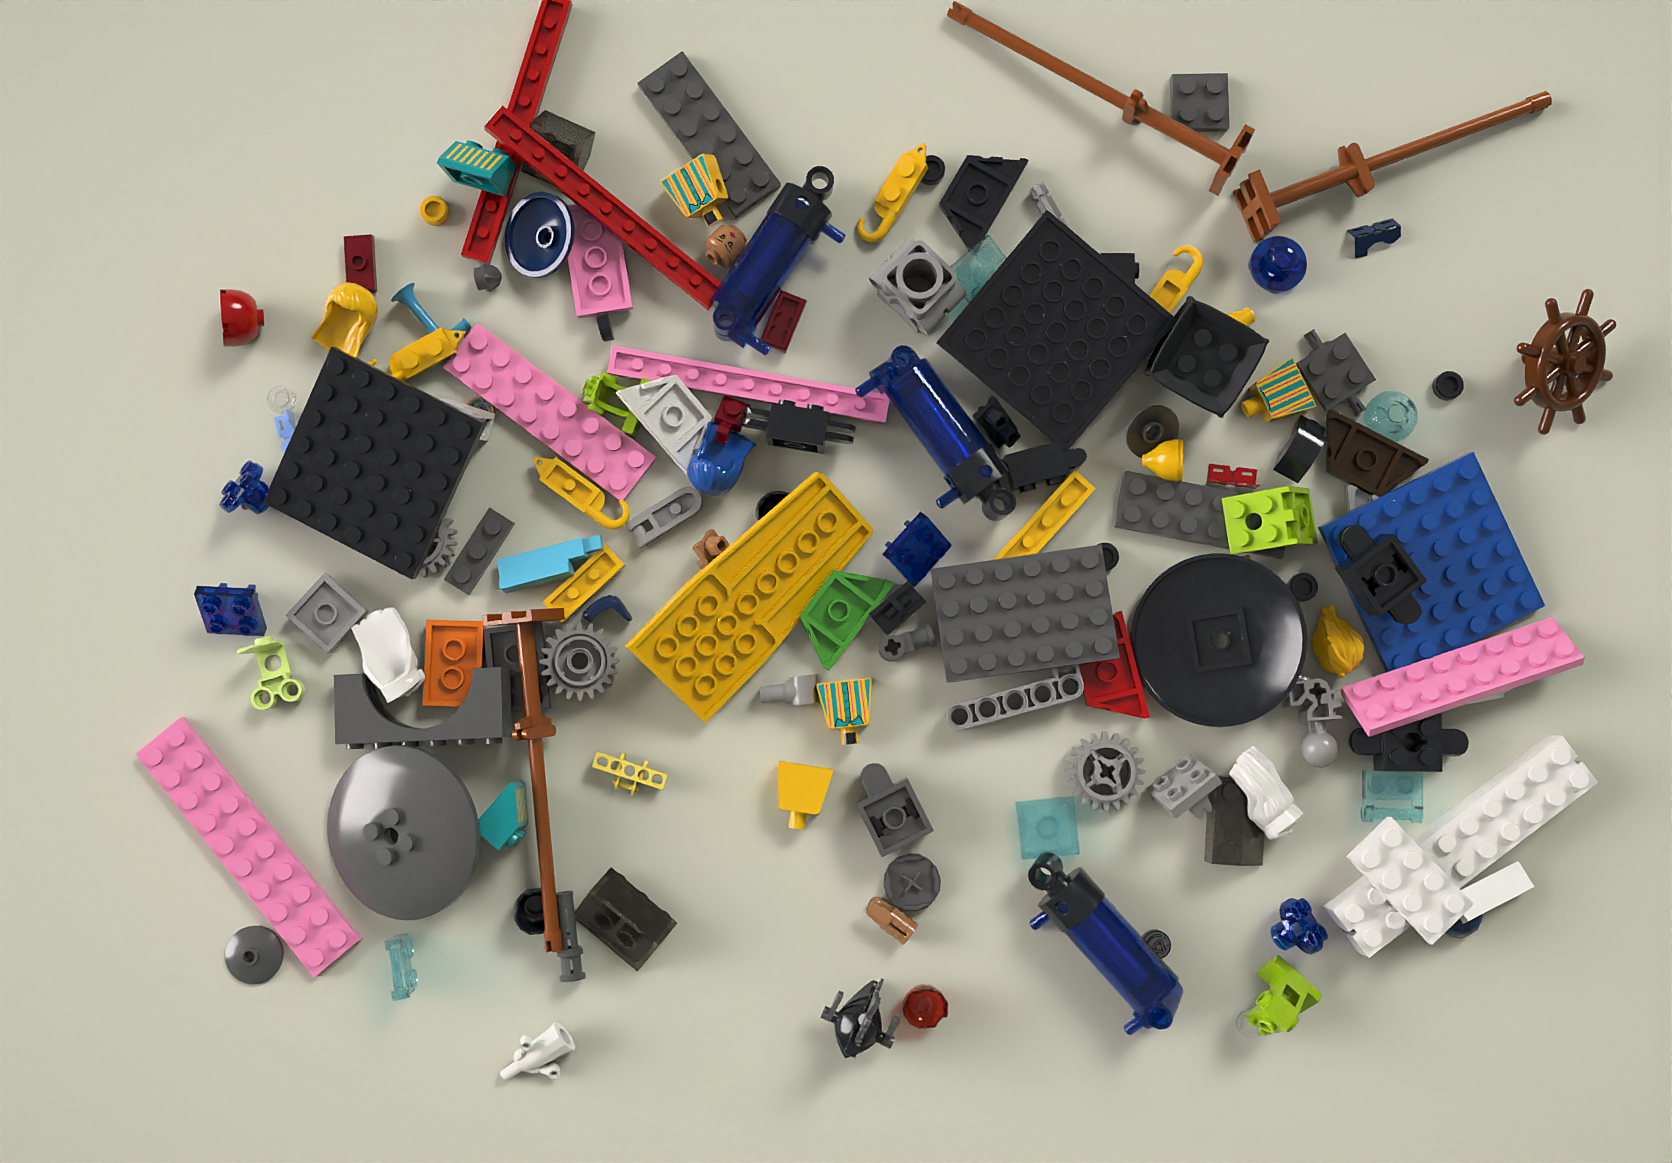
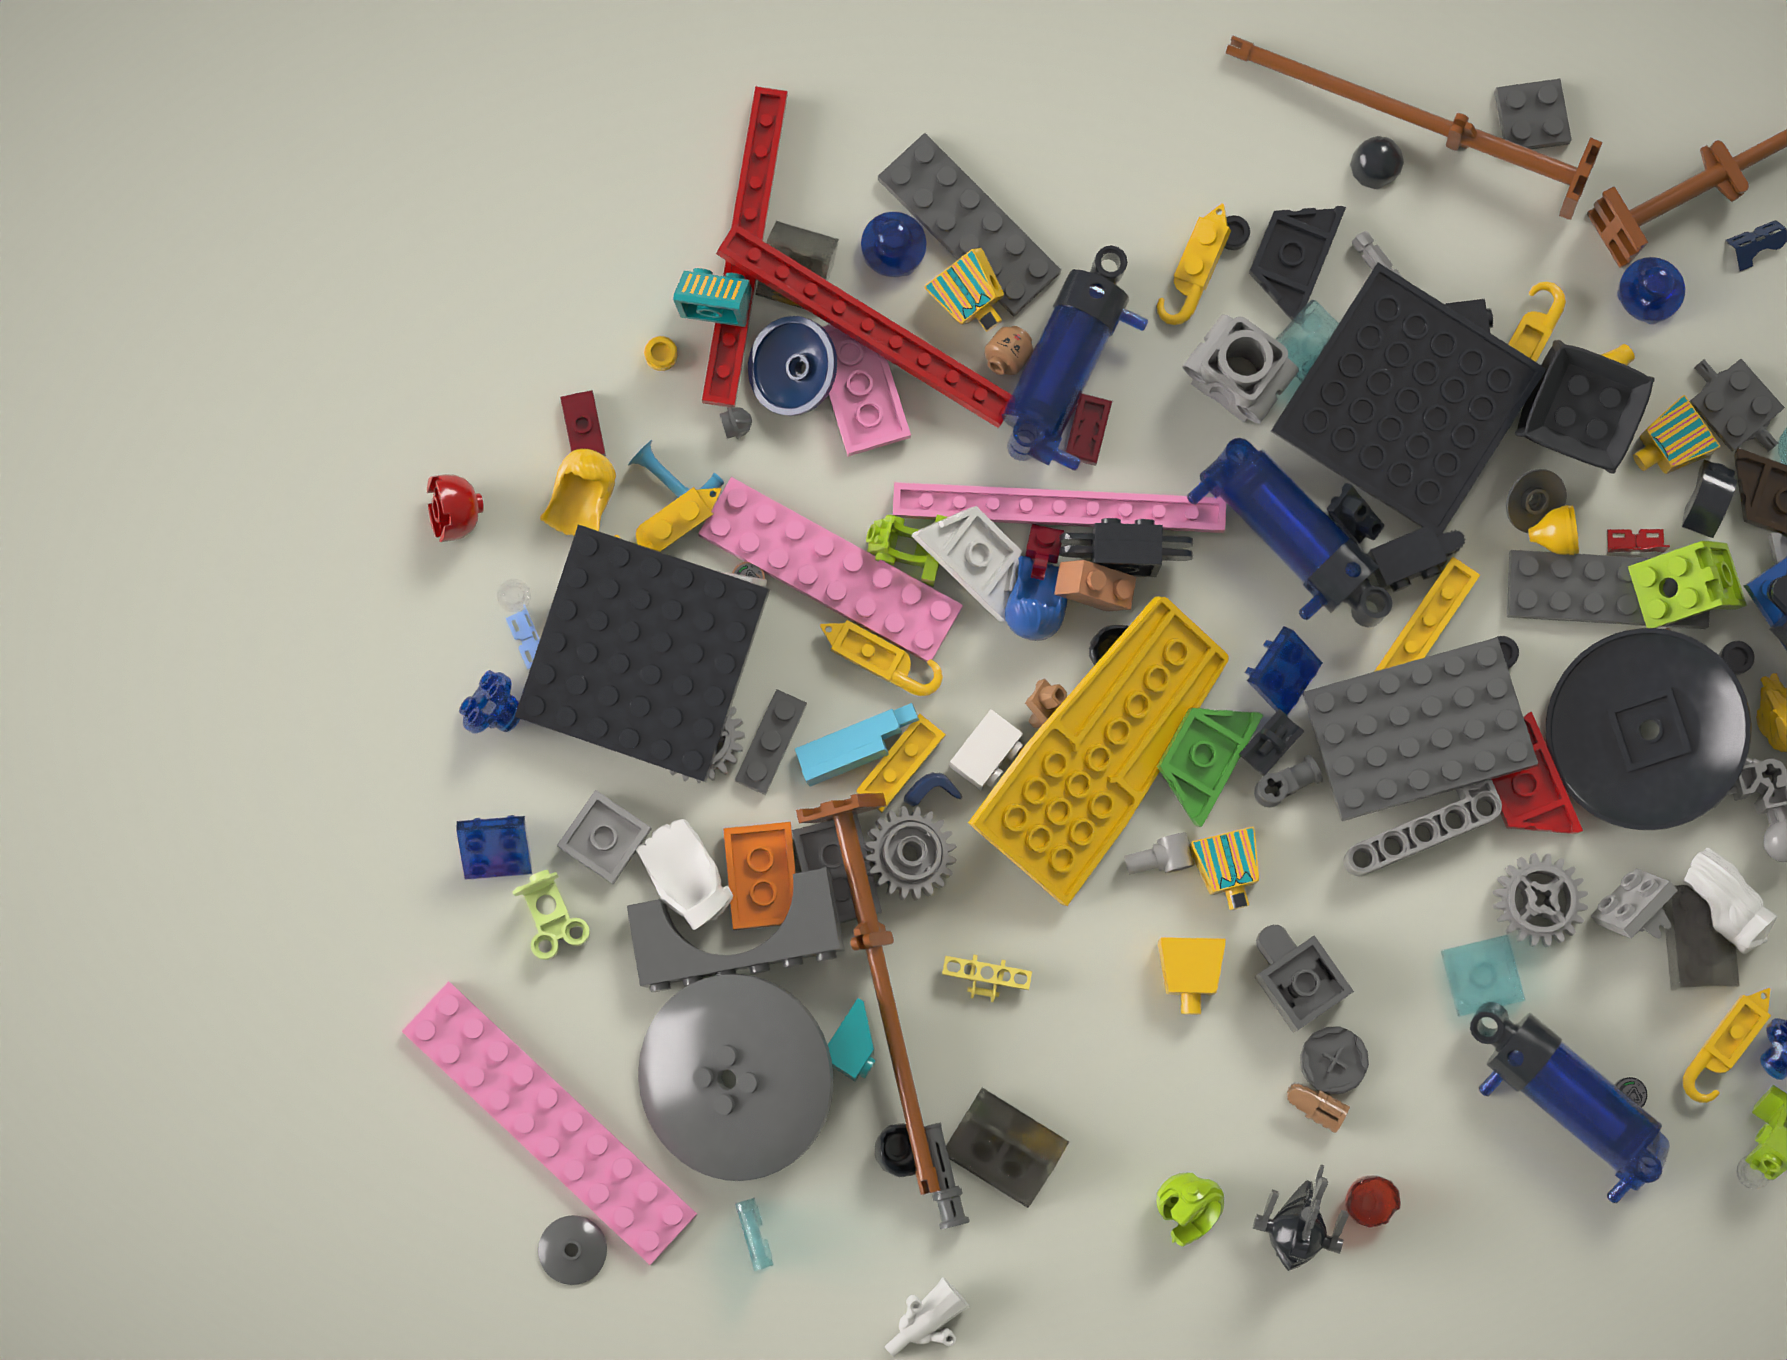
camera: 10 degrees left, 5 degrees down
(605, 327) = (882, 462): black tile -> none
(642, 143) = (893, 244): none -> clear blue plate
(657, 583) = (986, 751): none -> white brick
(666, 515) = (984, 671): light grey plate -> none
(767, 455) = (1095, 585): none -> nougat brick
(770, 991) = (1191, 1203): none -> lime helmet
(1061, 125) = (1377, 162): none -> black hair
(1246, 911) = (1728, 1041): none -> yellow plate

